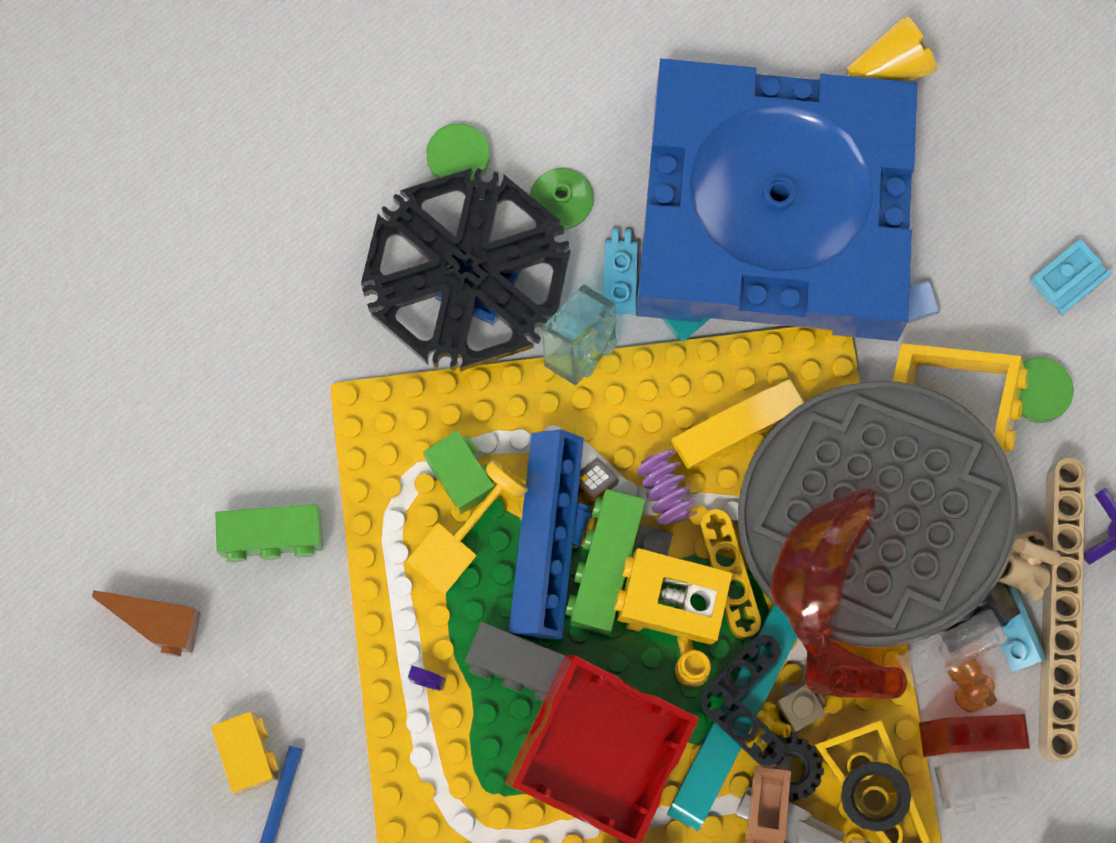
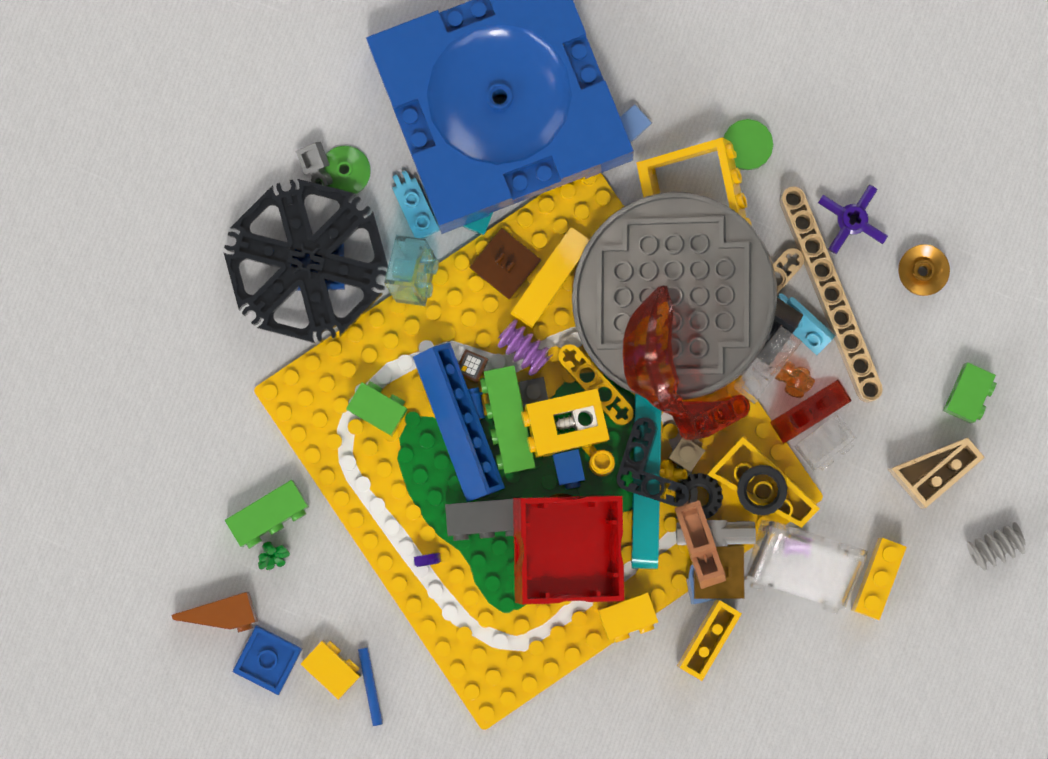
camera: 25 degrees left, 10 degrees up
(177, 704) = (267, 660): none -> blue tile
(248, 584) = (272, 556): none -> green plant
(443, 555) = (394, 470): yellow piece -> none
(457, 149) = (253, 175): bright green tile -> none
(532, 168) = (313, 161): none -> dark grey plate
(650, 655) = (569, 469): none -> blue brick
(692, 385) = (505, 263): none -> reddish brown piece
(1027, 569) = (795, 282): tan pin -> none
(1070, 277) = (732, 50): medium azure plate -> none

